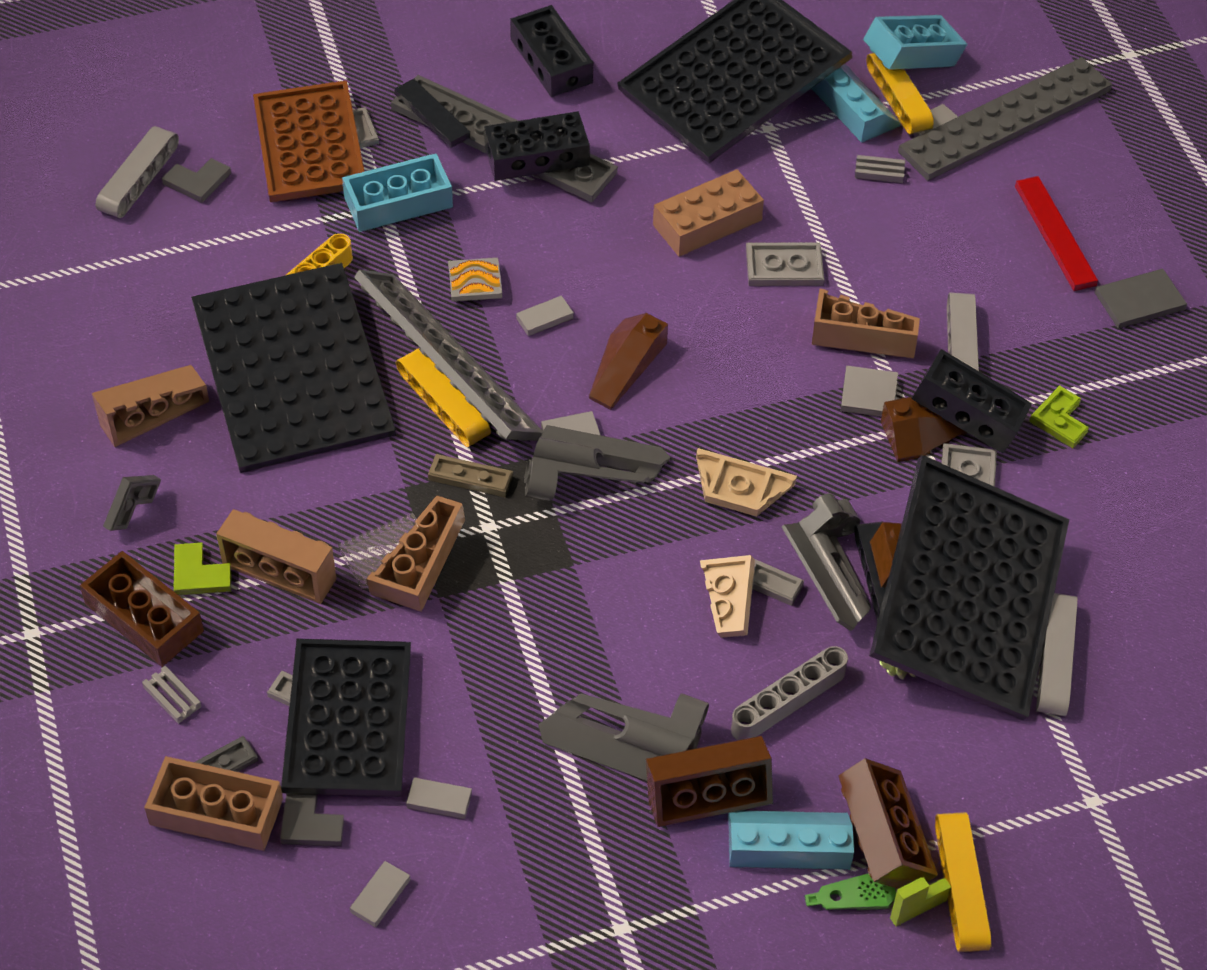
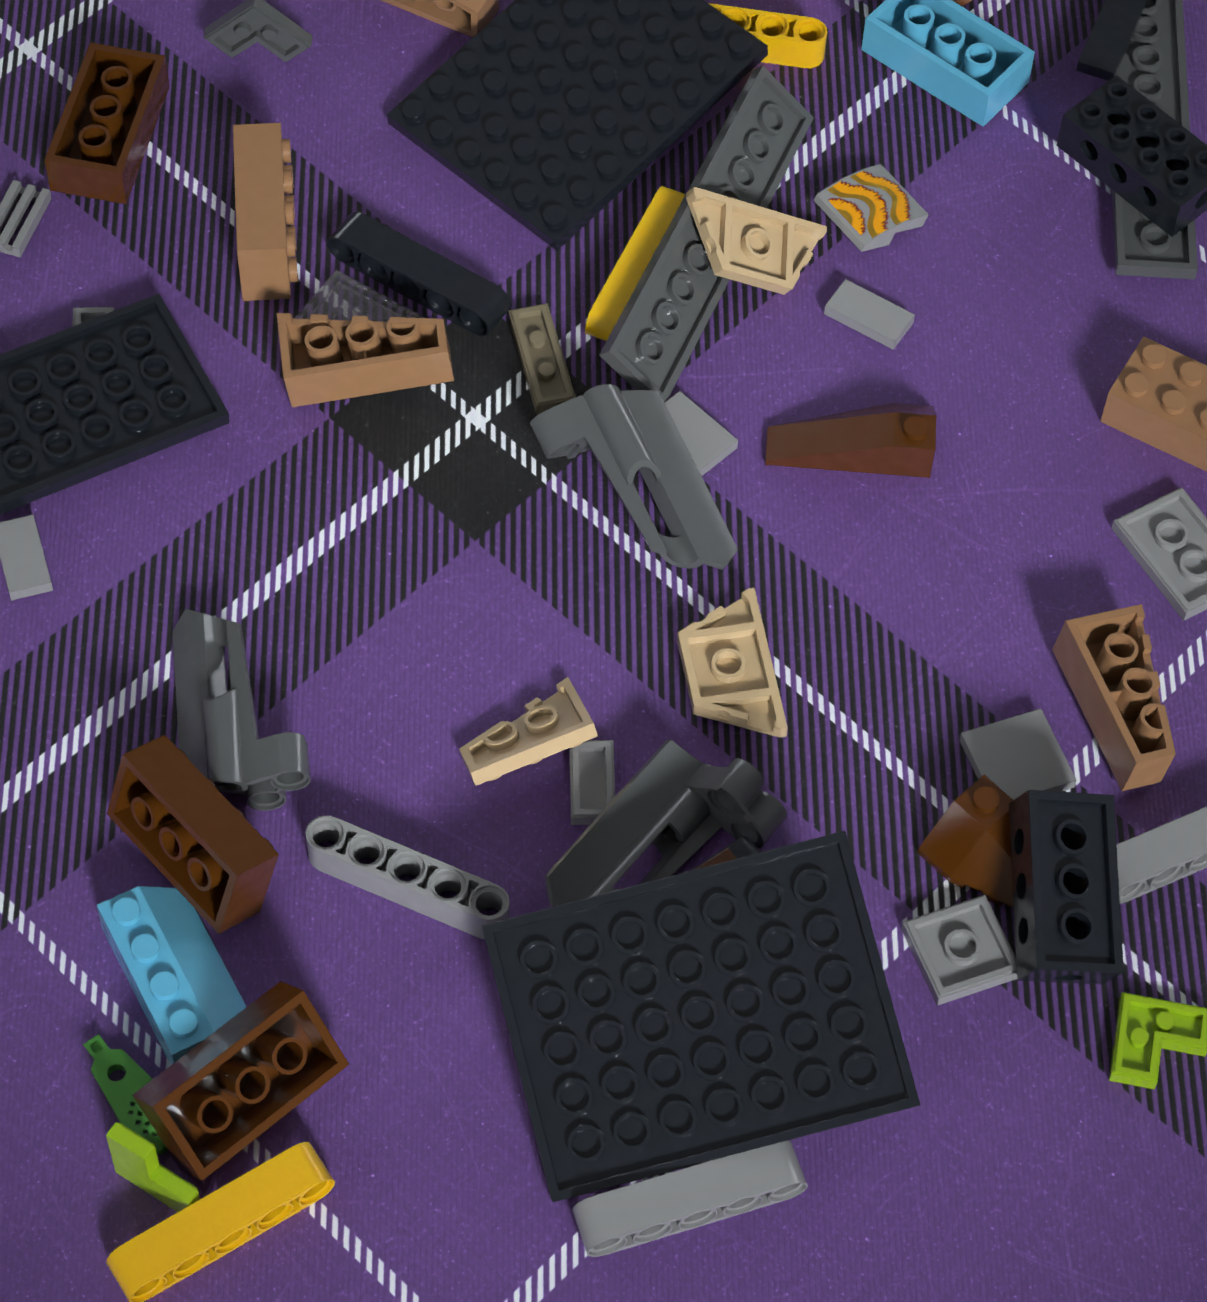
camera: 60 degrees right, 5 degrees up
(196, 578) = (200, 156): lime tile -> none
(371, 504) = (419, 274): none -> black beam
(468, 337) = (753, 241): none -> tan wing

